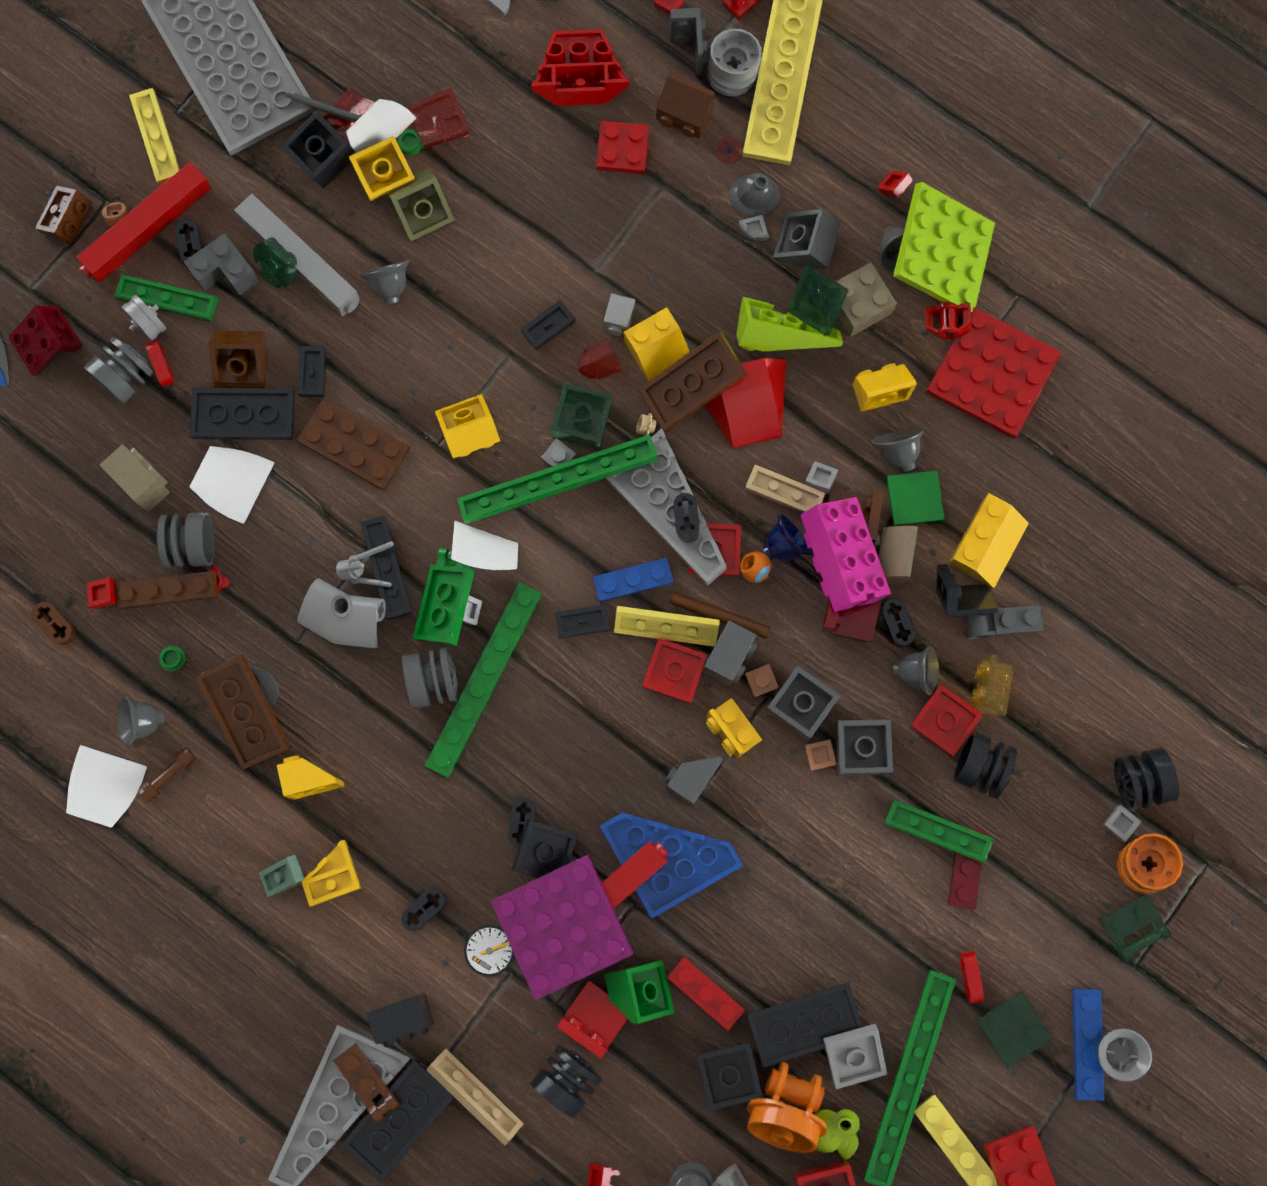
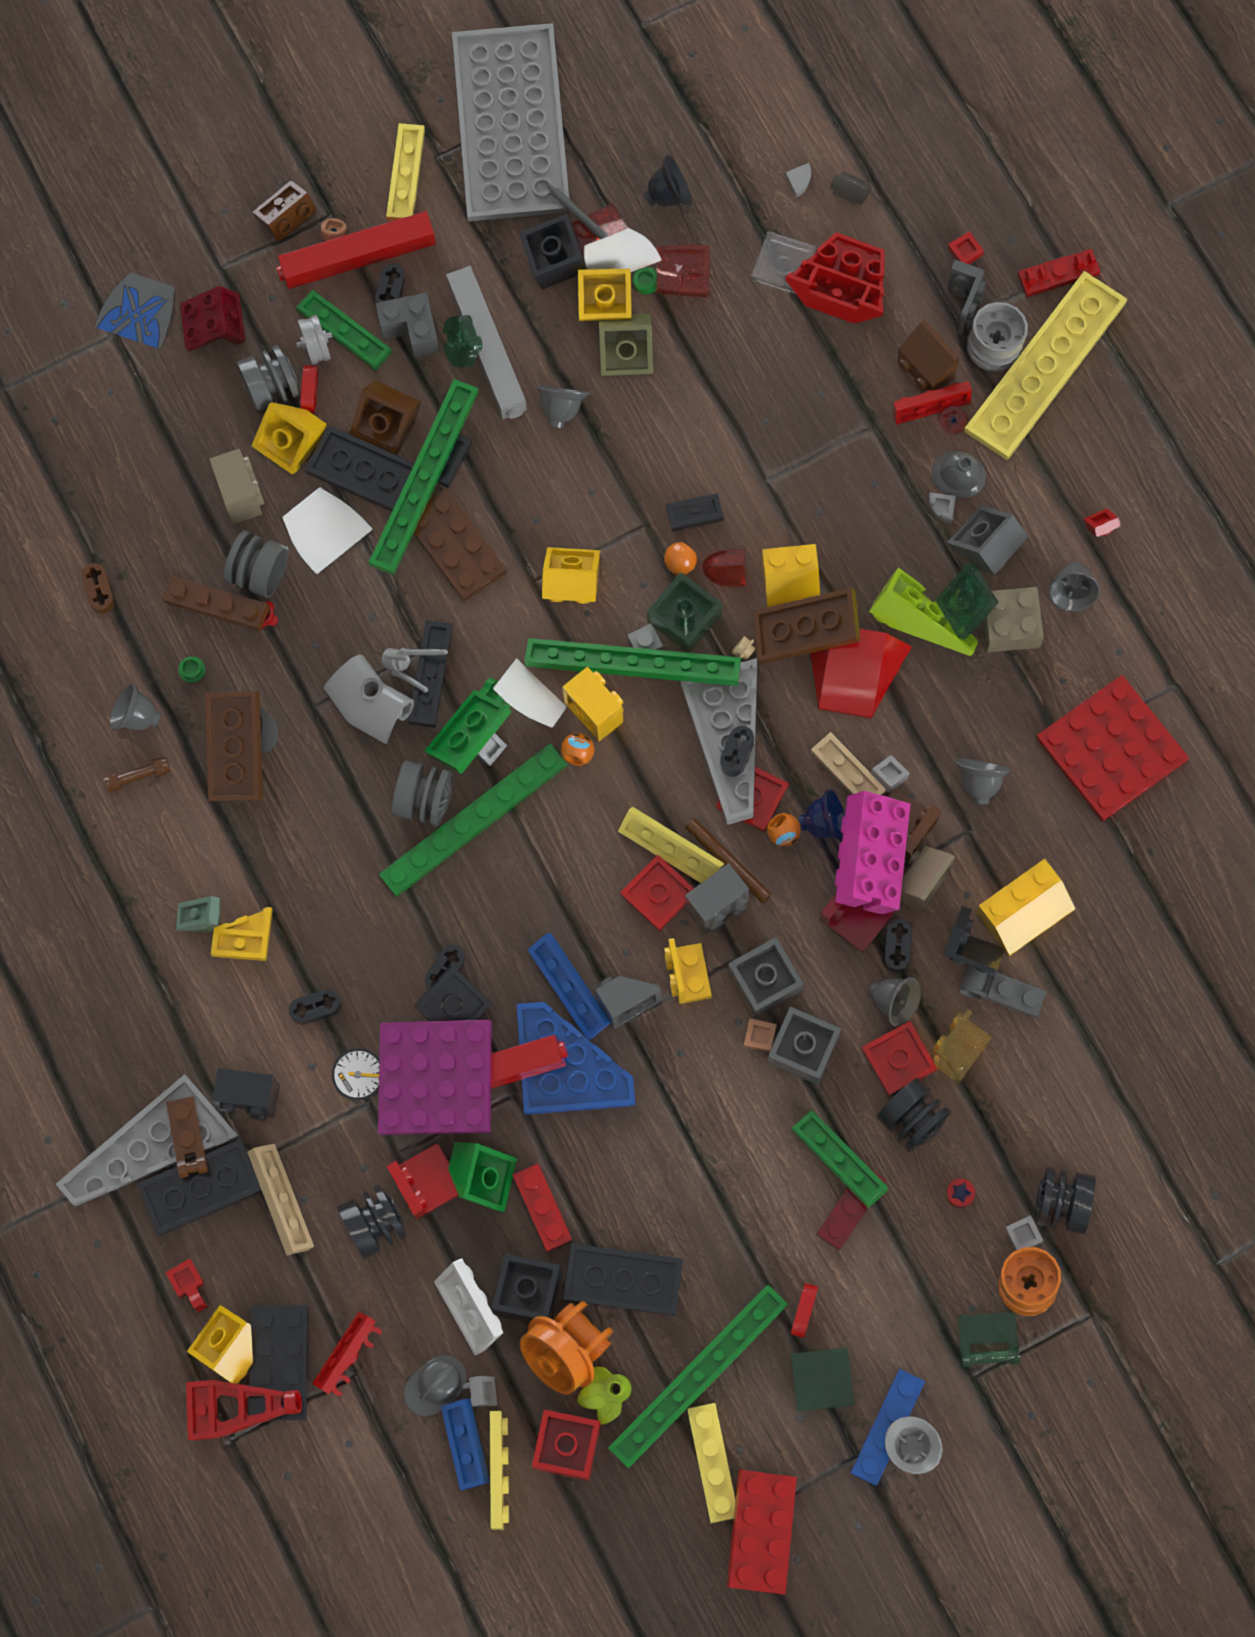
camera: 30 degrees right, 5 degrees down
(101, 593) = (155, 579): red plate -> none
(102, 786) = (72, 758): white sticker -> none
(160, 412) = (288, 435): none -> yellow slope
(298, 397) = (423, 477): none -> green plate
(302, 778) = (261, 834): yellow slope -> none
(390, 51) = (668, 185): none -> black hat
(517, 74) = (779, 258): none -> clear tile
(542, 530) = (593, 703): none -> yellow brick
(546, 576) = (577, 749): none -> orange piece
(555, 371) = (680, 558): none -> orange piece
(582, 621) = (592, 807): black plate -> none
(619, 314) = (768, 531): light grey brick -> none
(622, 147) = (850, 373): red plate -> none
(633, 580) = (660, 790): blue plate -> none
(637, 788) = (569, 986): none -> blue plate
(687, 1115) = (468, 1306): none -> white plate
(704, 142) = (931, 402): none -> red plate
(761, 681) = (737, 940): nougat plate -> none
(855, 1056) = (655, 1329): light grey plate -> none
(883, 387) = (992, 713): yellow slope -> none
(915, 498) = (974, 834): green tile -> none
(943, 247) = (1116, 605): lime plate -> none
(945, 311) = (1089, 678): red piece -> none
(1051, 812) = (960, 1193): none -> red tile

